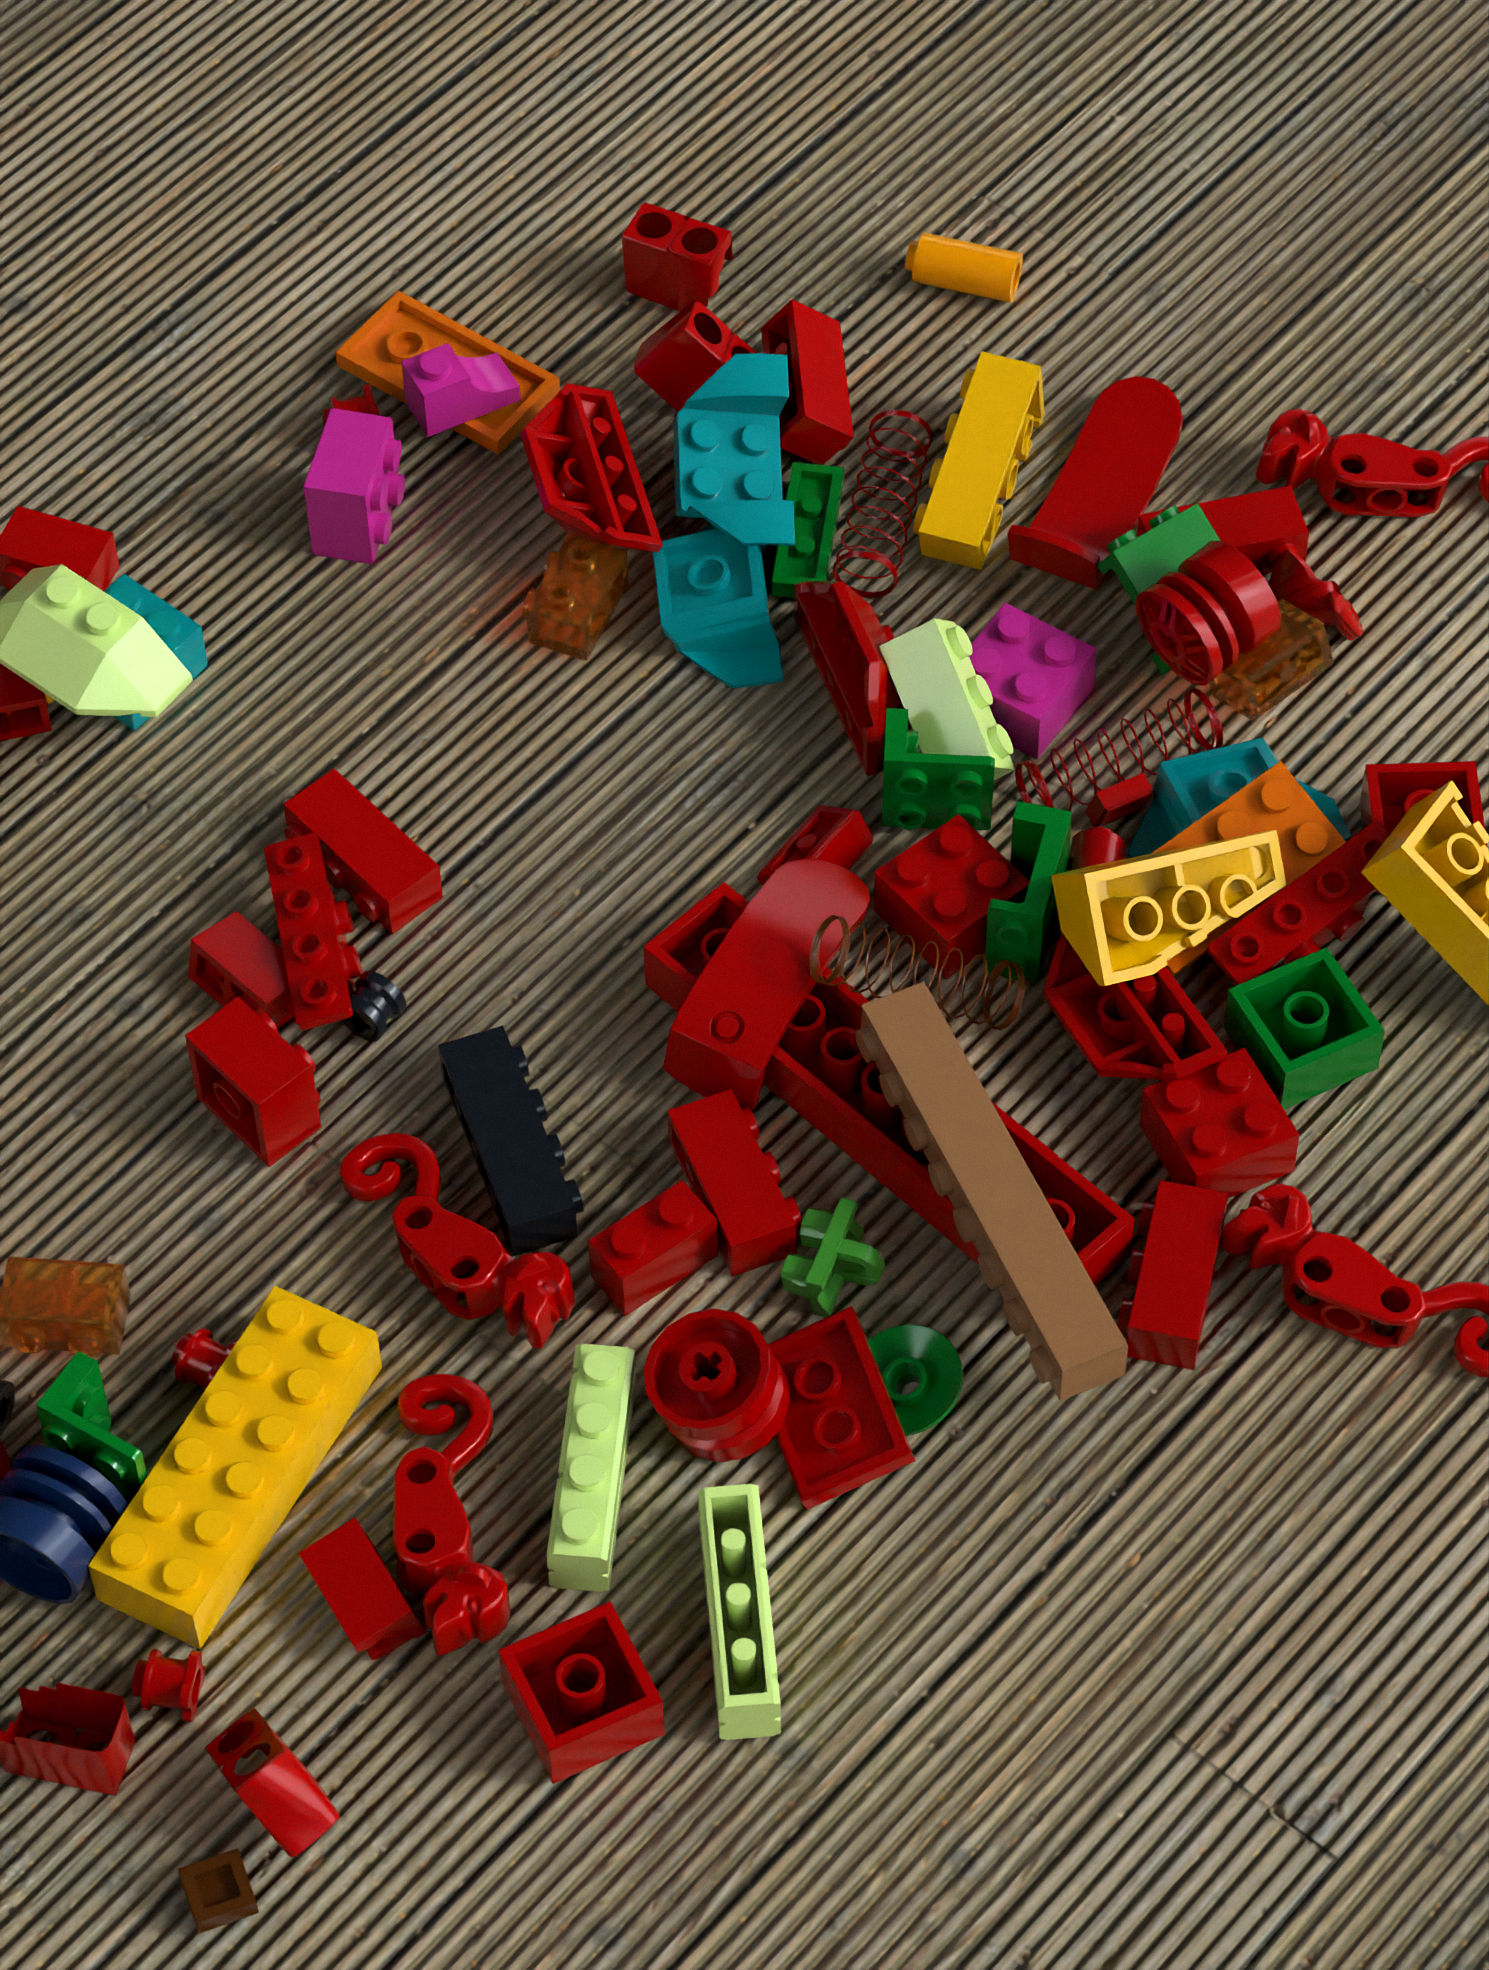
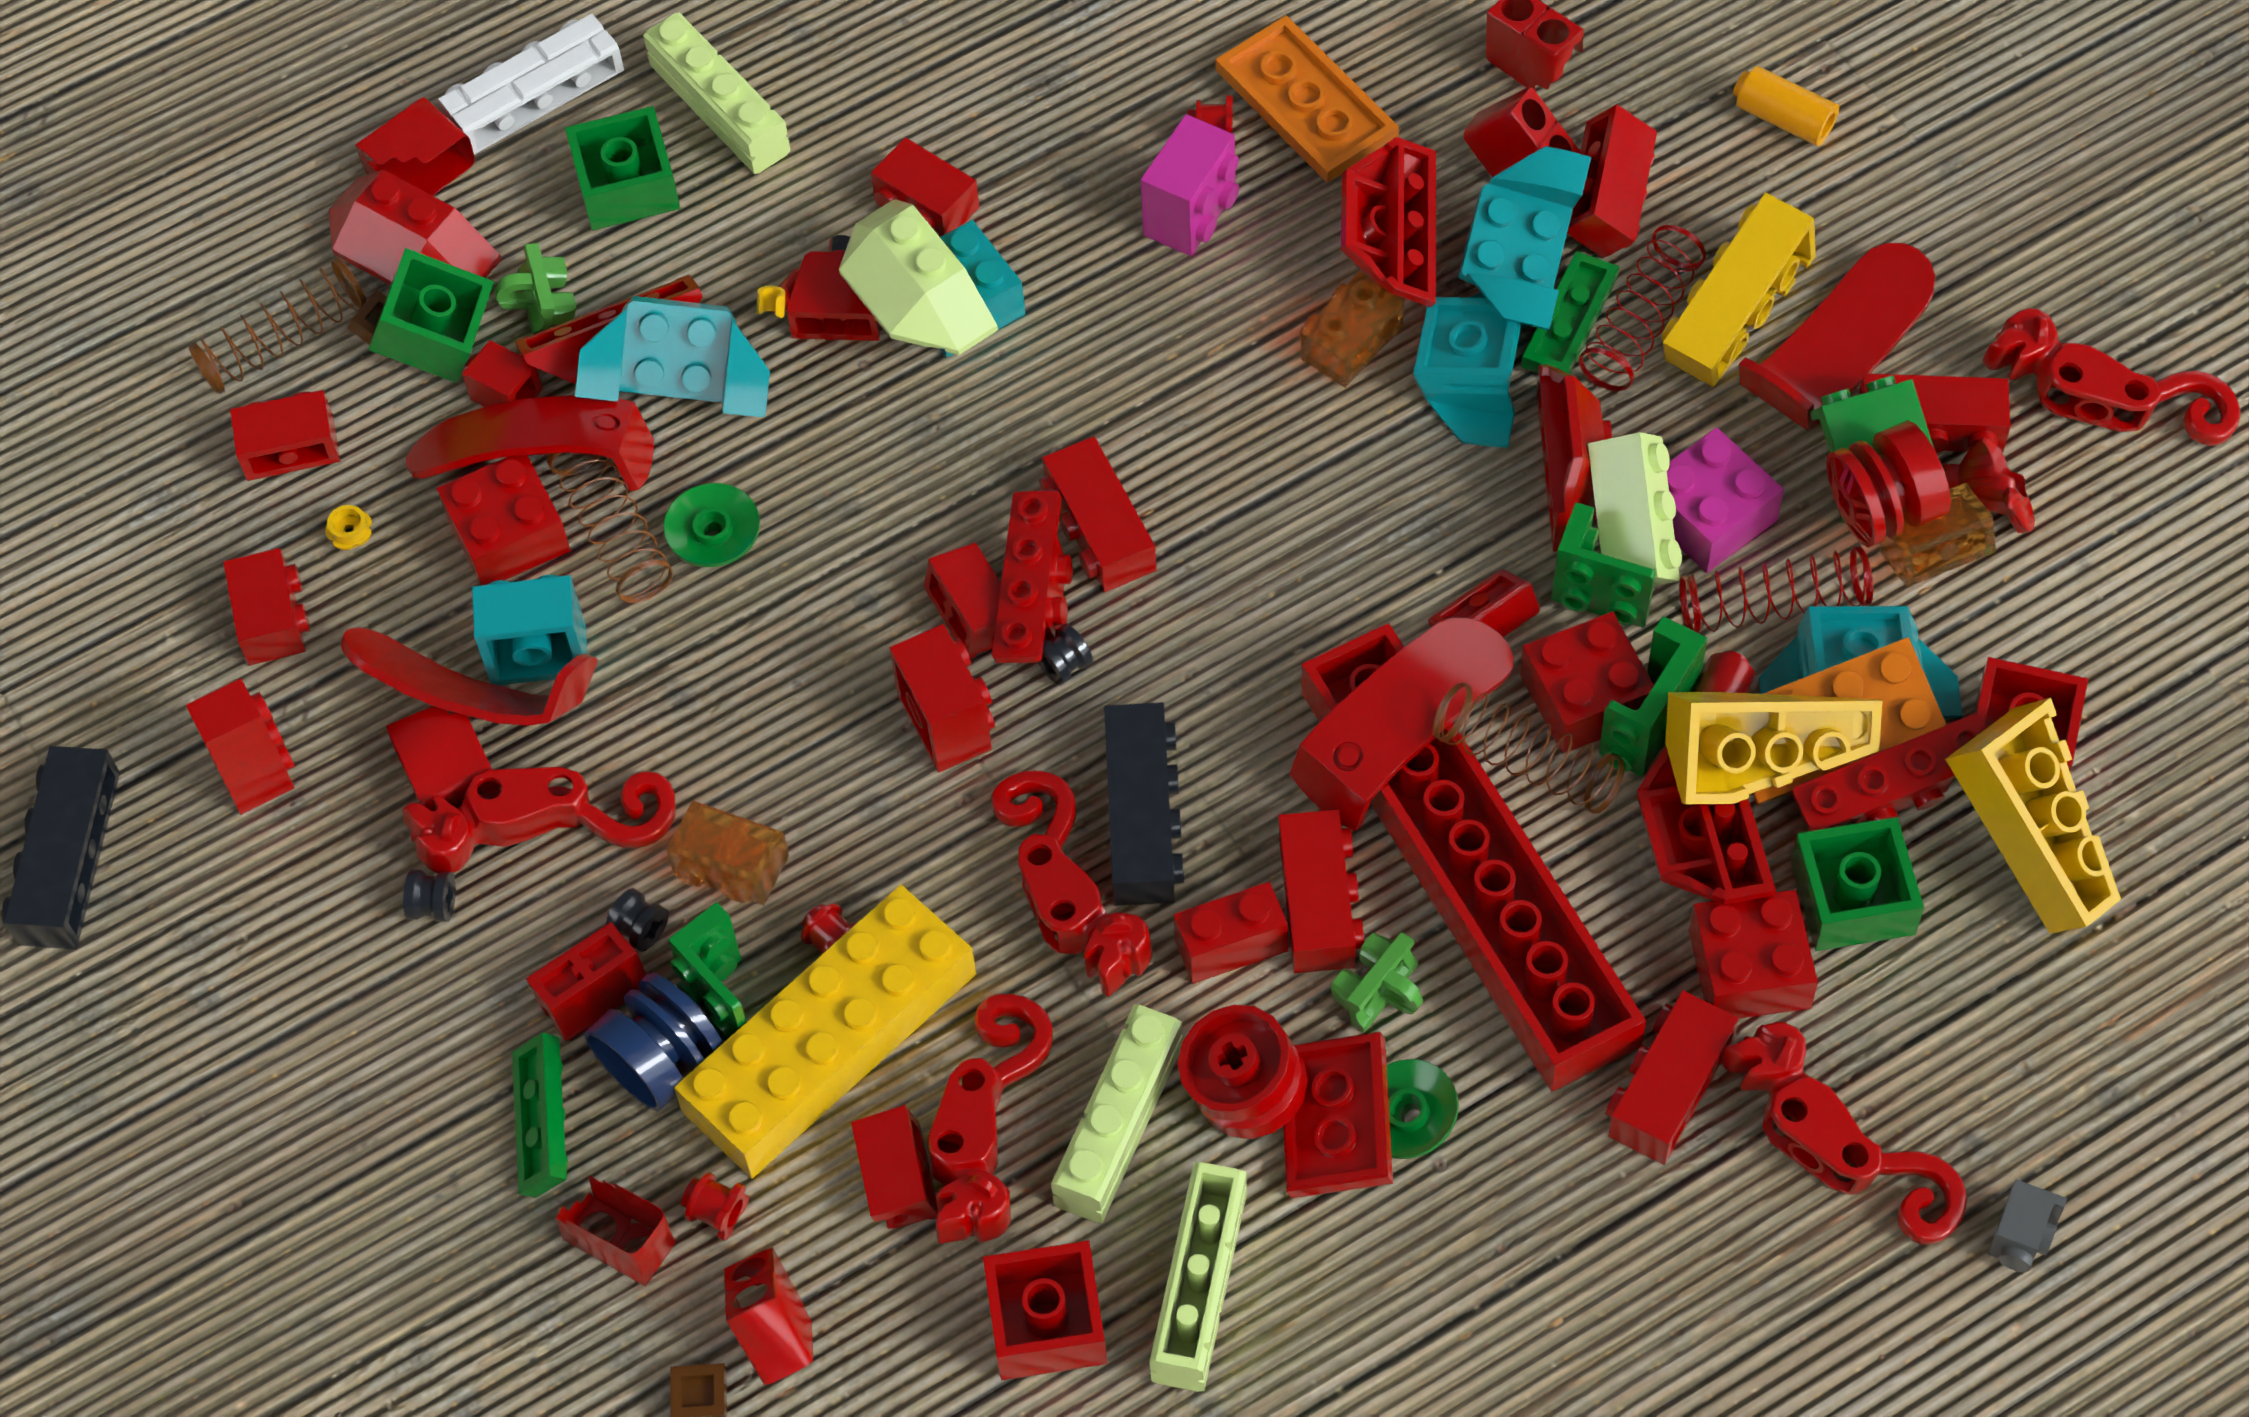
camera: 20 degrees right, 5 degrees up
(455, 389) = (1303, 117): dark pink arch -> none
(992, 1193) = (1526, 967): medium nougat brick -> none
(1119, 800) = (1762, 631): red tile -> none

